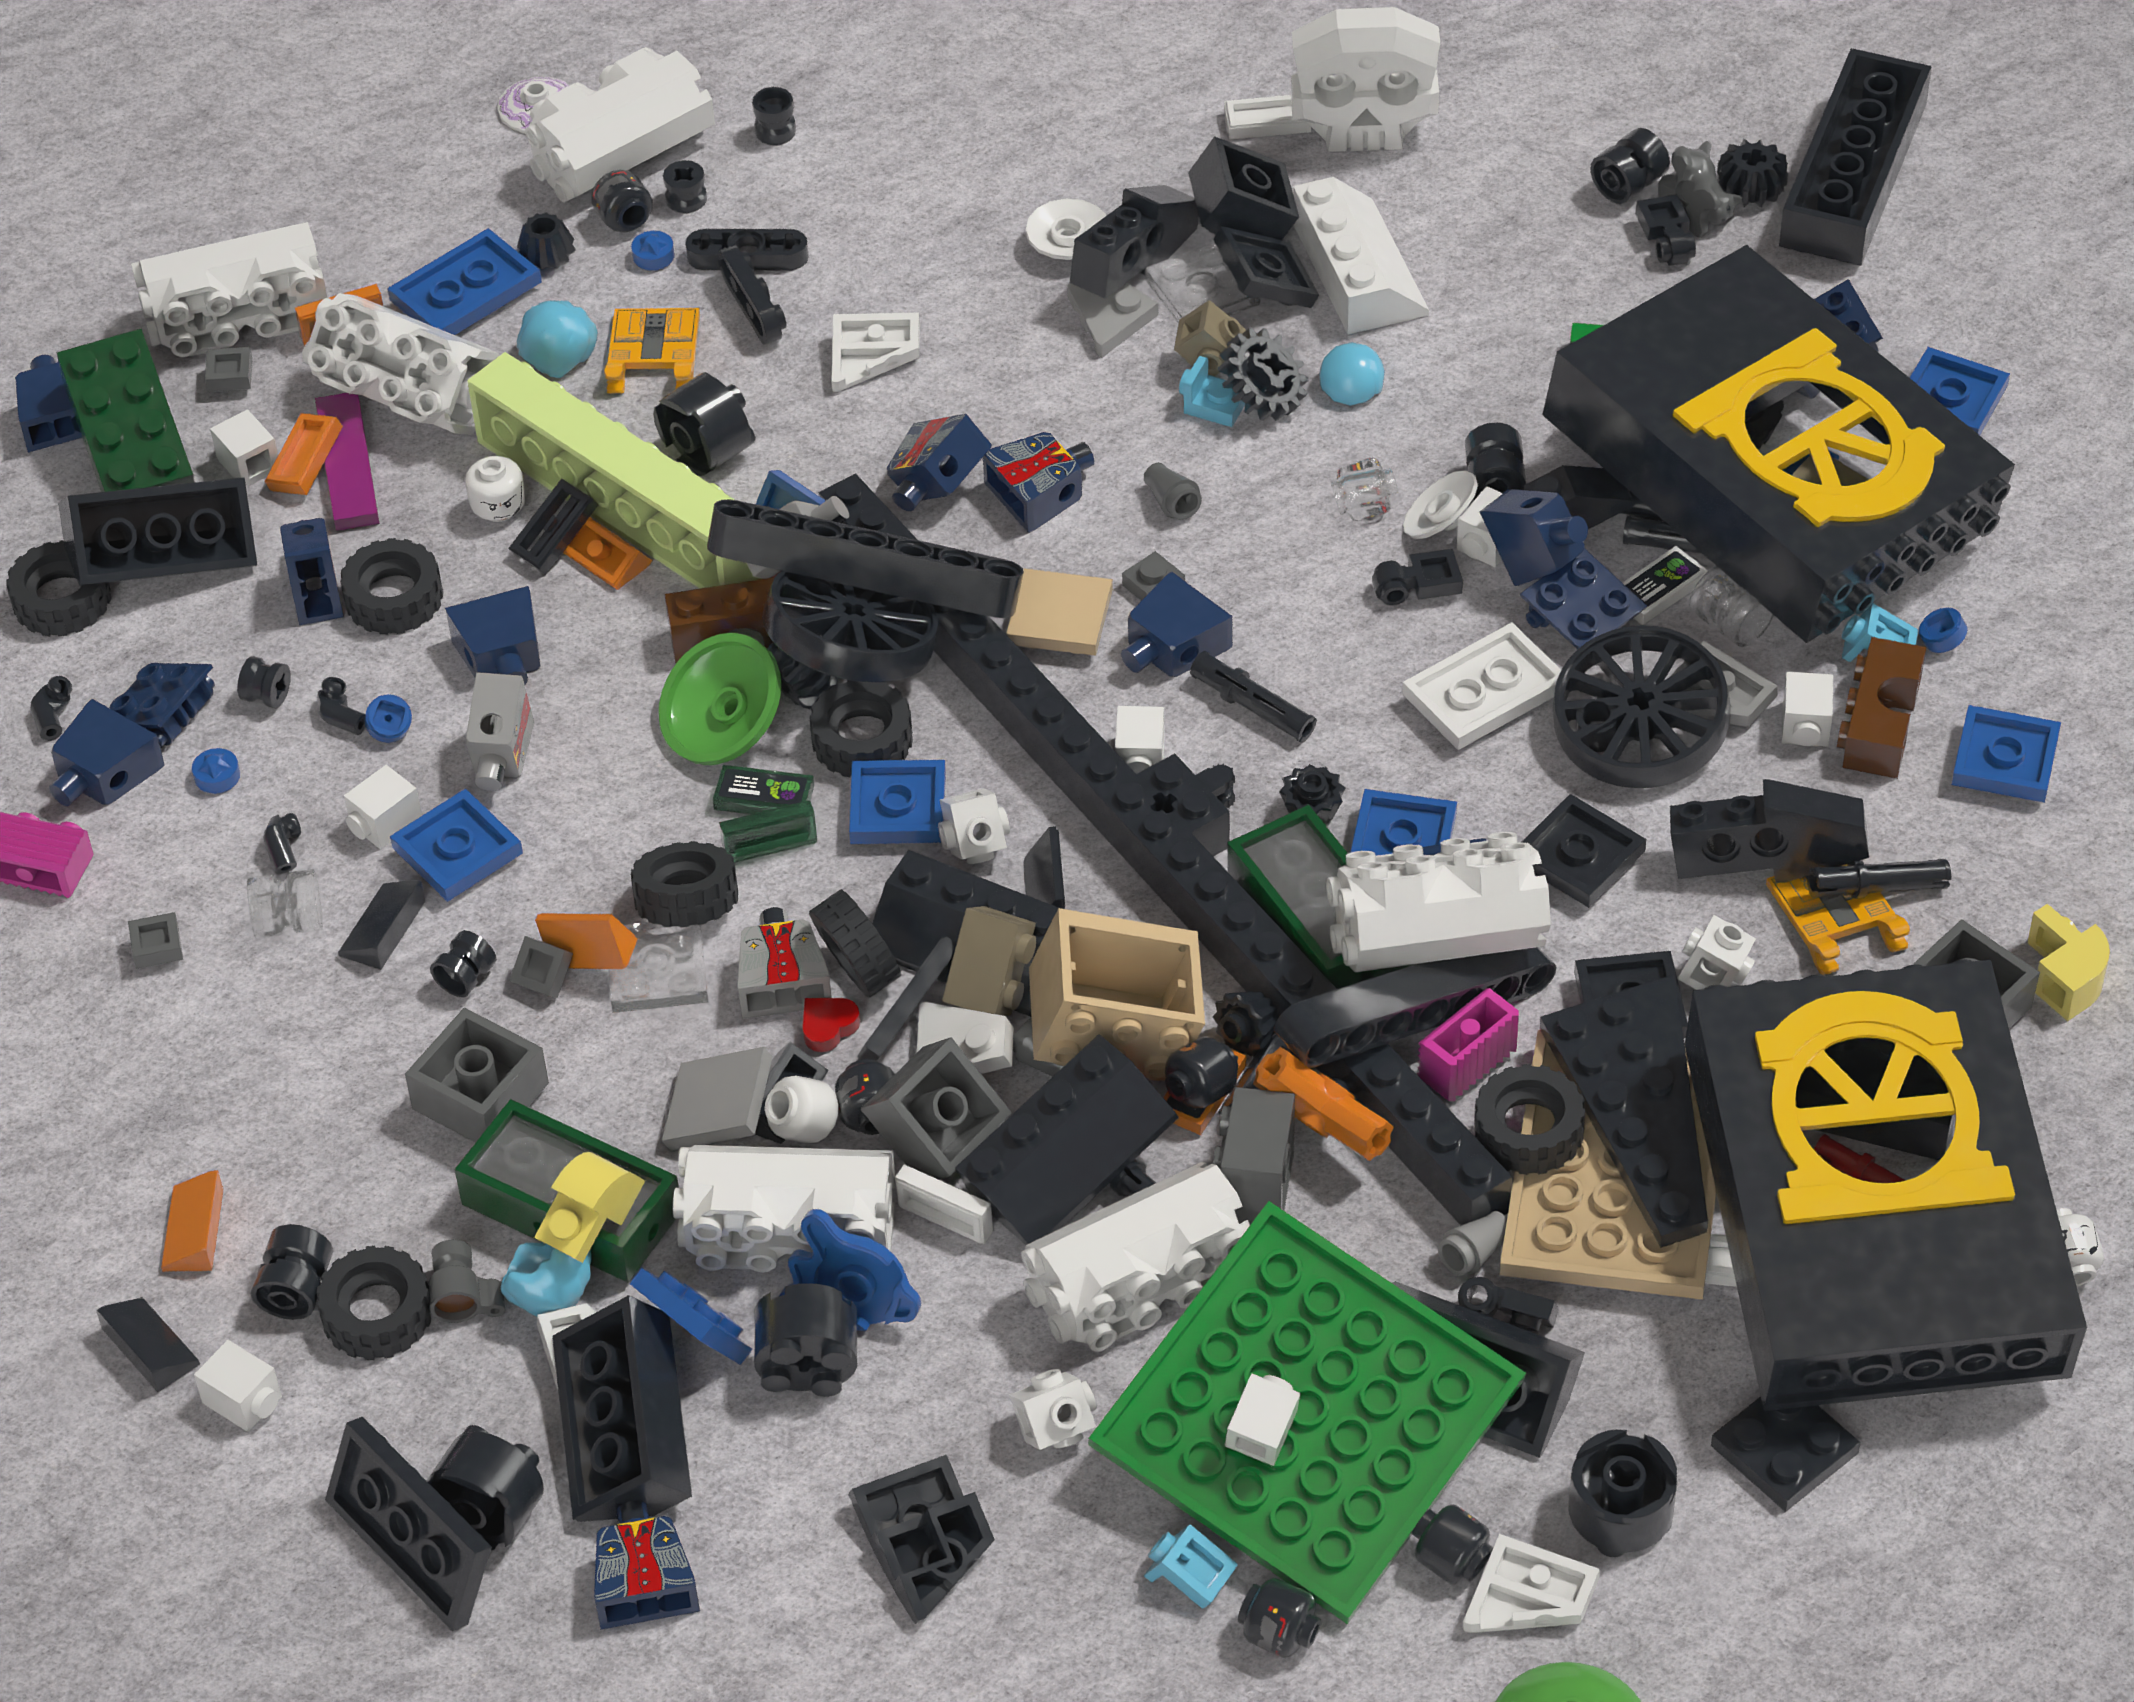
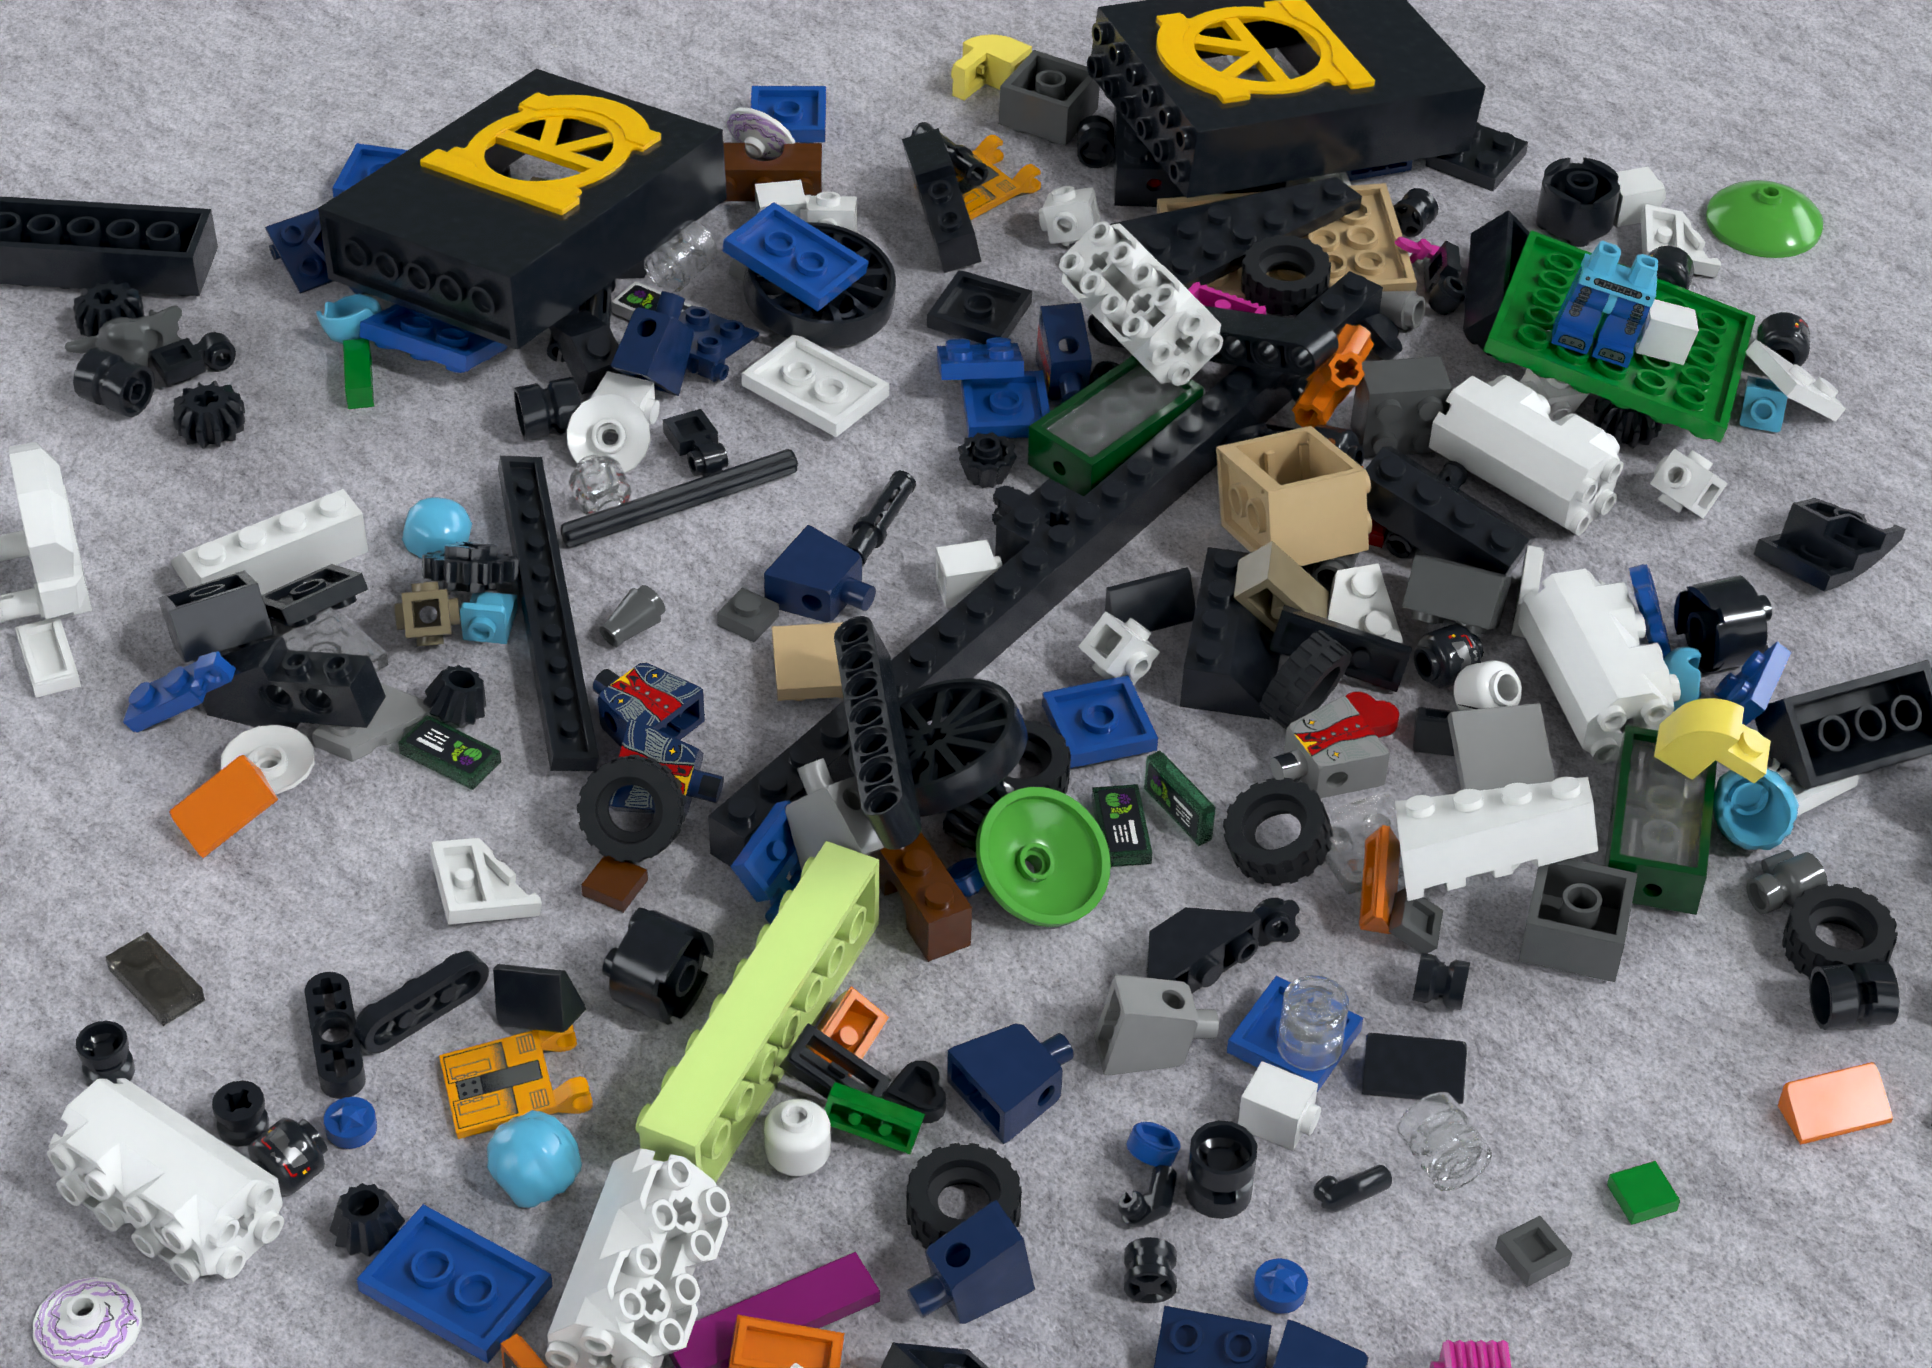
camera: 110 degrees left, 5 degrees down
(178, 1045) = (1643, 1192): none -> green tile
(330, 743) = (1221, 1169): none -> black wheel
(428, 821) = (1312, 1022): none -> clear wheel
(495, 540) = (873, 1118): none -> green piece
(523, 576) = (919, 1090): none -> black tile
(571, 989) = (1493, 831): none -> white wedge
(574, 788) = (1201, 945): none -> black slope
(589, 864) = (1275, 910): none -> black plate
(710, 351) = (535, 998): none -> black slope
(740, 1280) = (1684, 664): none -> medium azure hair
(842, 436) = (614, 883): none -> reddish brown tile
(855, 156) = (155, 978): none -> clear smoke plate
(890, 429) = (606, 834): none -> black tyre
(1015, 195) = (223, 805): none -> orange slope
(1045, 352) = (449, 752): none -> tile
(1101, 355) = (456, 696): none -> black piece
(1163, 169) = (176, 691): none -> blue hinge
(1185, 1588) = (1797, 382): none -> white wing
(1211, 430) = (547, 616): none -> black plate
(1264, 1314) = (1610, 289): none -> hips
(1341, 557) = (678, 498): none -> black axle
(1424, 1210) = (1383, 335): none -> black tile
(1467, 807) = (980, 361): none -> blue plate
(1566, 230) = (209, 414): none -> black gear
(1571, 1295) = (1419, 250): none -> dark pink piece
(1631, 1572) = (1636, 189): none -> white brick
(1648, 658) = (795, 256): none -> blue plate
(1656, 1317) = (1415, 211): none -> black wheel
(1762, 730) = (832, 209): none -> white brick
(1937, 699) = (759, 132): none -> white dish

